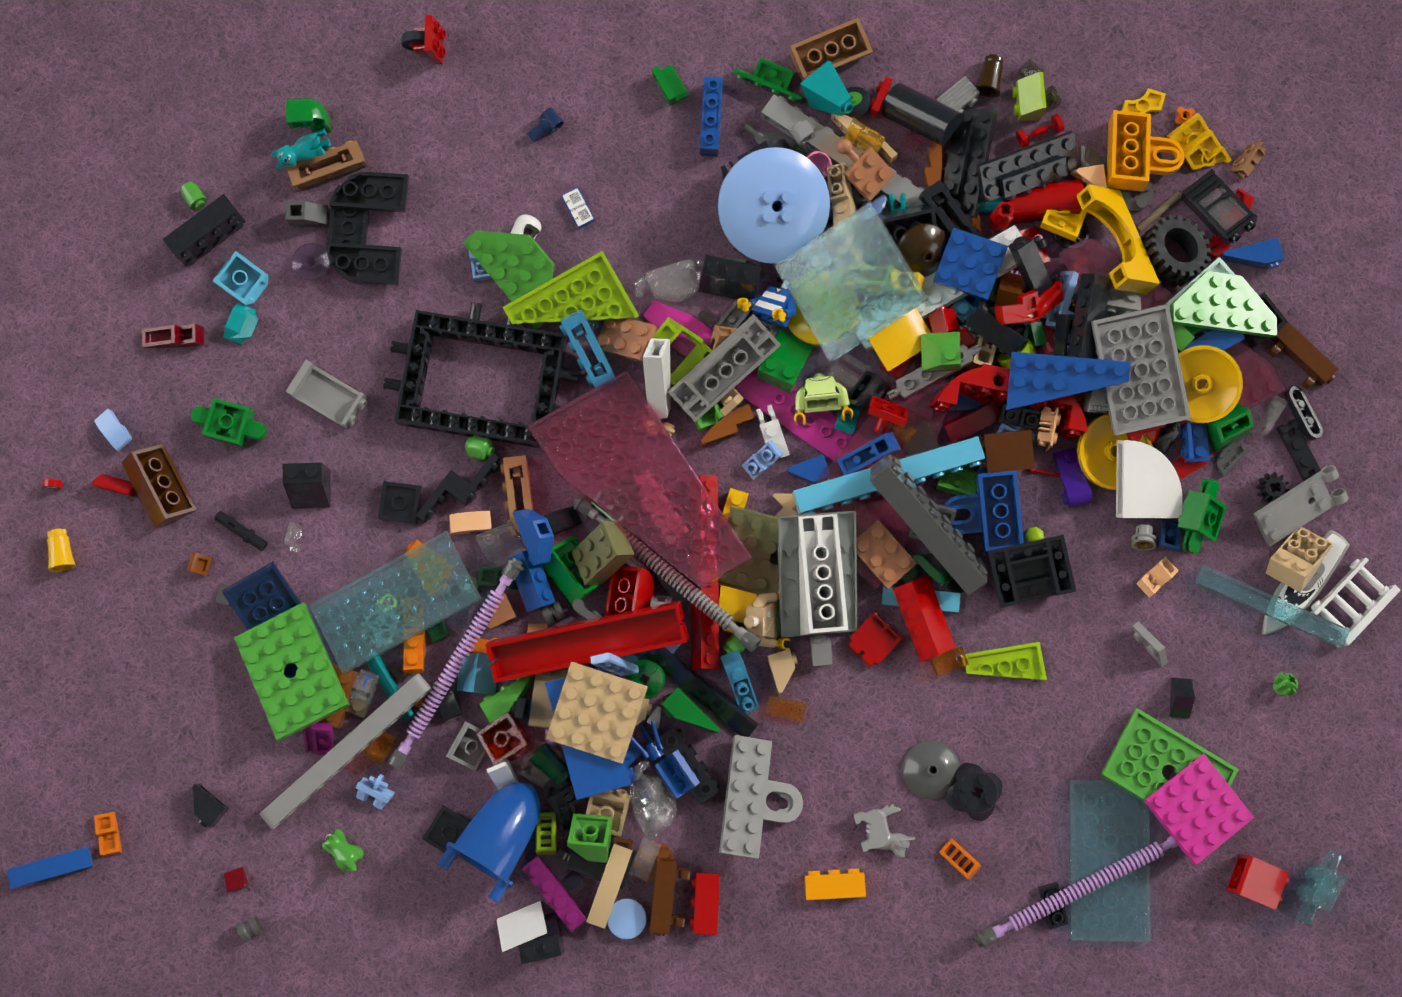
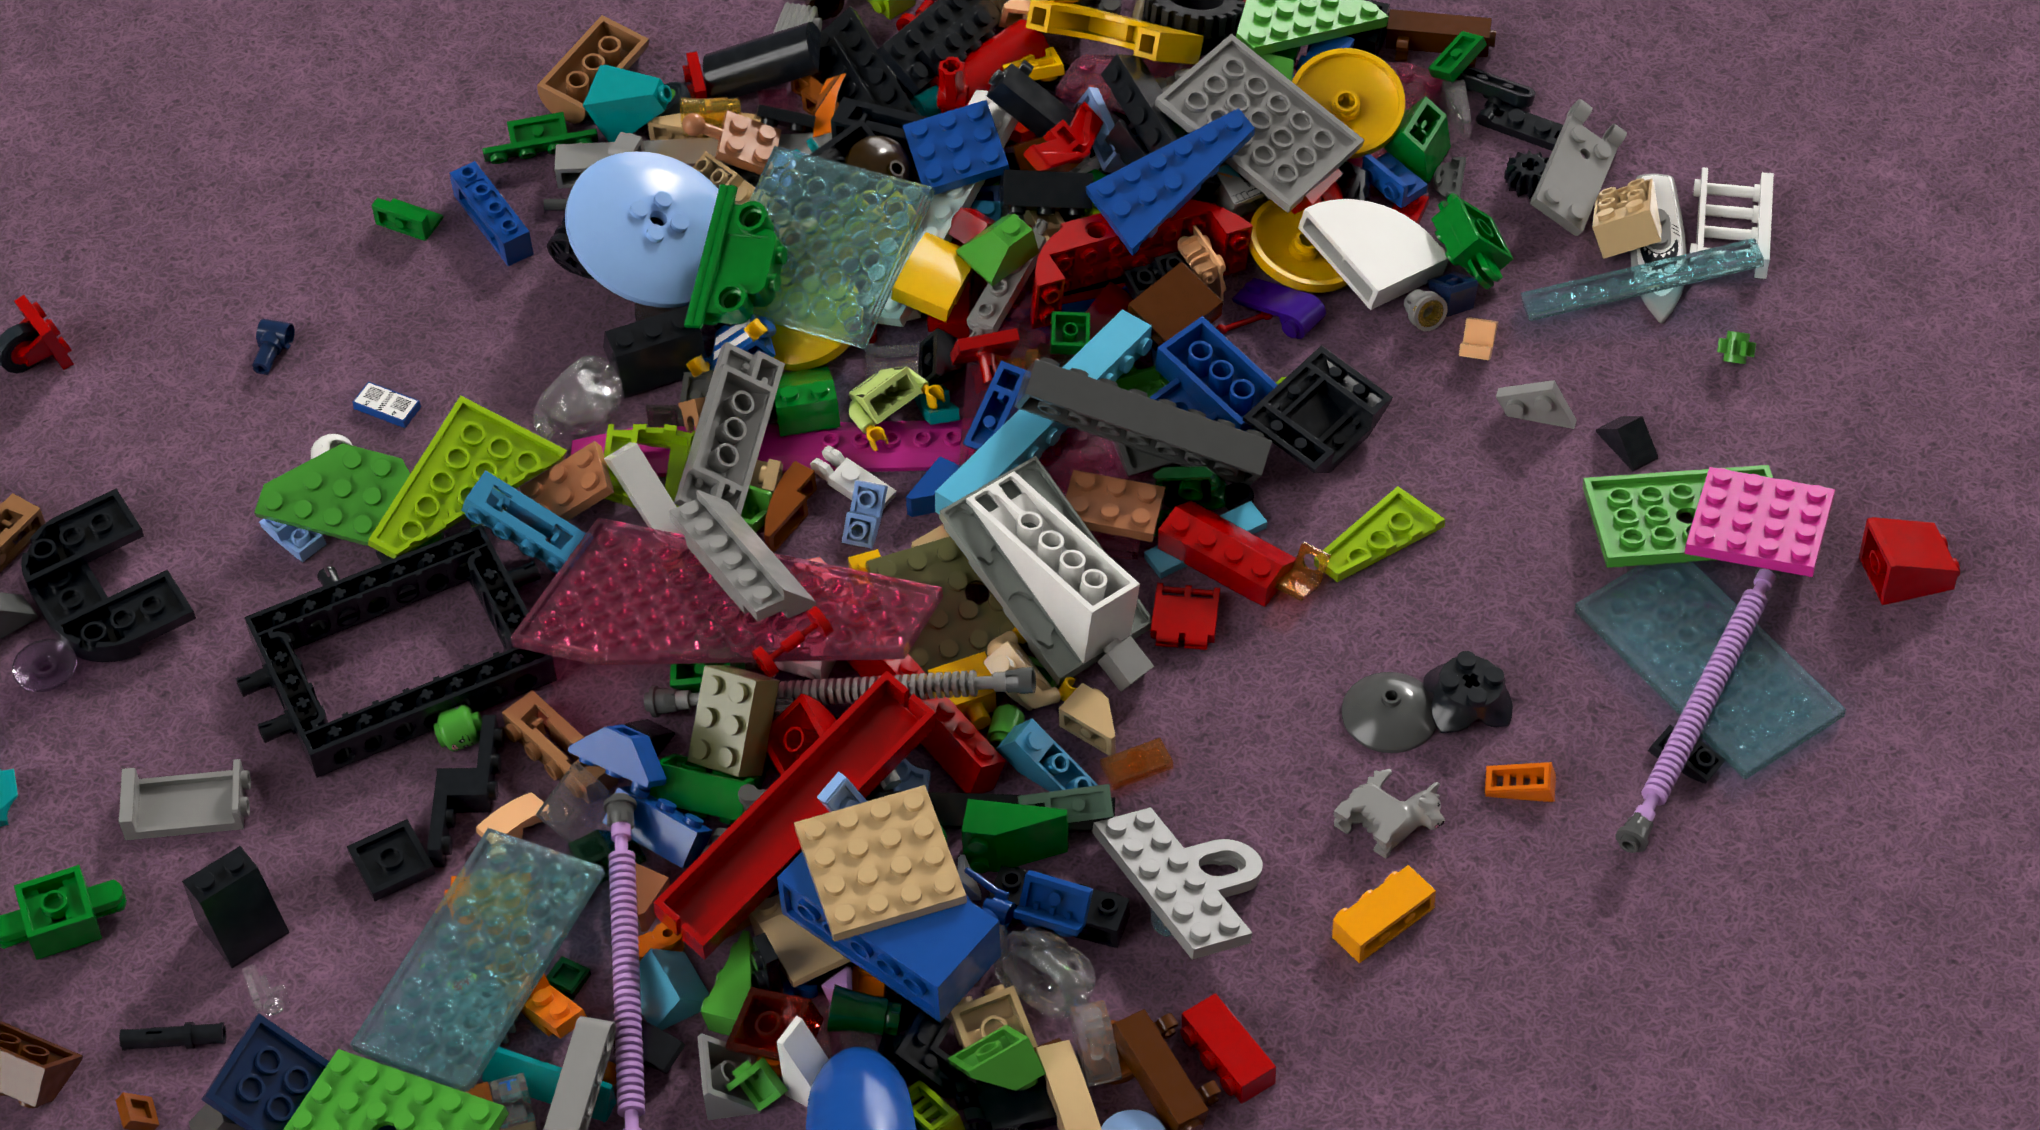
camera: 35 degrees left, 30 degrees down
(396, 671) = (552, 1047): clear smoke plate -> none
(479, 760) = (758, 1083): none -> bright green bracket
(632, 541) = (818, 622): none -> red wheel
(669, 462) = (739, 559): none -> light grey slope
(728, 716) = (1081, 803): none -> sand green plate
(798, 265) = (737, 263): none -> green brick
(901, 163) = (793, 120): none -> black wing
(933, 170) = (826, 105): none -> orange sticker
(942, 429) = (1069, 332): none -> green piece
(1296, 385) = (1457, 56): none -> green plate
(1320, 888) = (1987, 513): clear light blue brick -> none

